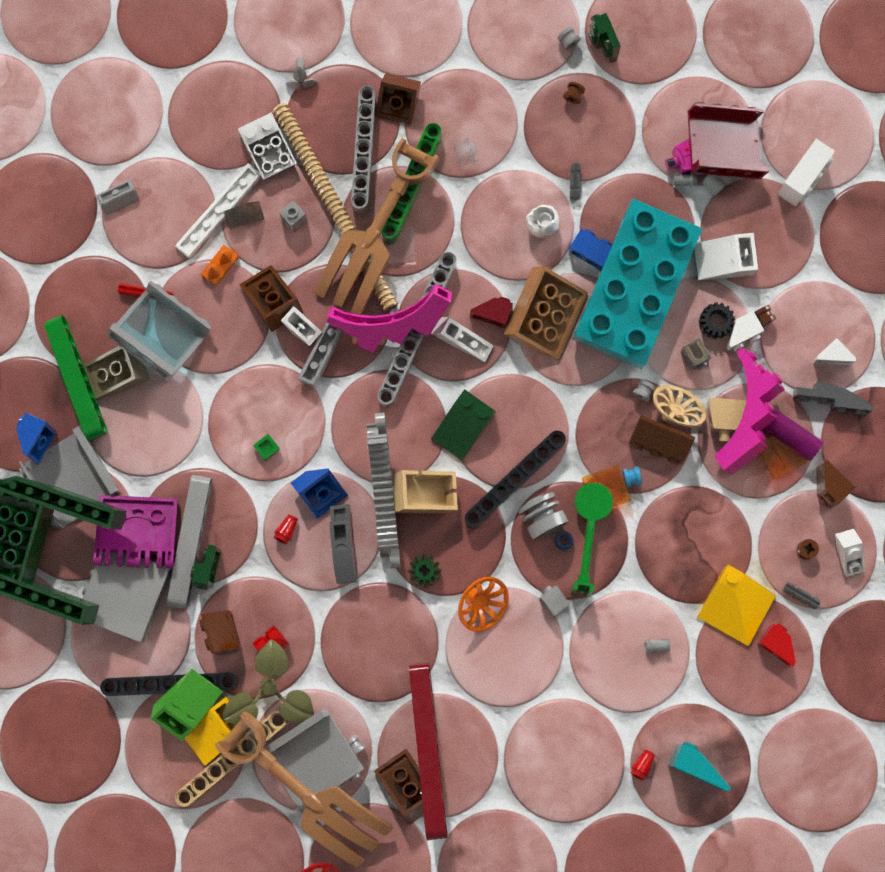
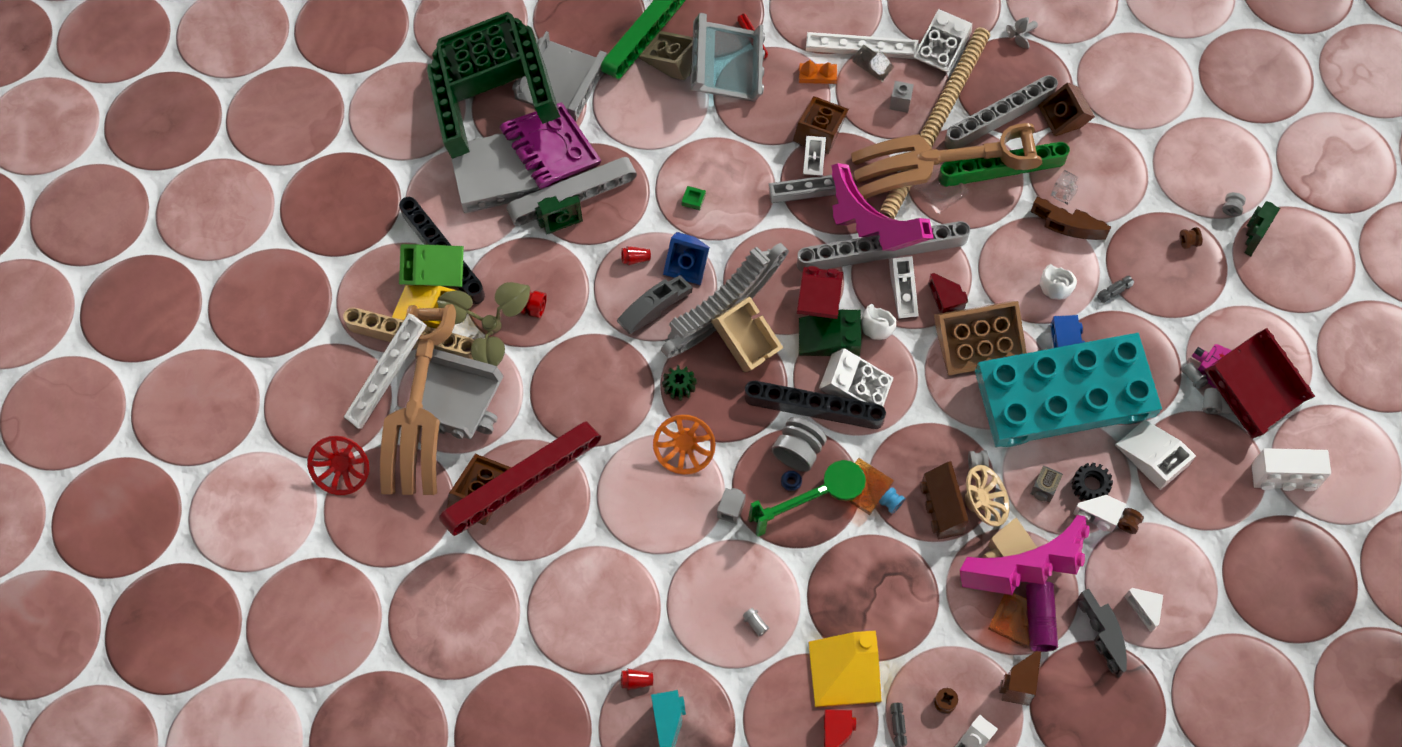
camera: 55 degrees right, 15 degrees down
(34, 436) = (573, 28): blue slope -> none
(220, 632) = (510, 253): reddish brown slope -> none
(258, 801) = (385, 371): none -> white tile
(429, 410) = (820, 292): none -> dark red slope
(482, 382) = (877, 323): none -> white hair
(503, 167) = (1075, 225): none -> reddish brown slope
(516, 434) = (855, 379): none -> white slope

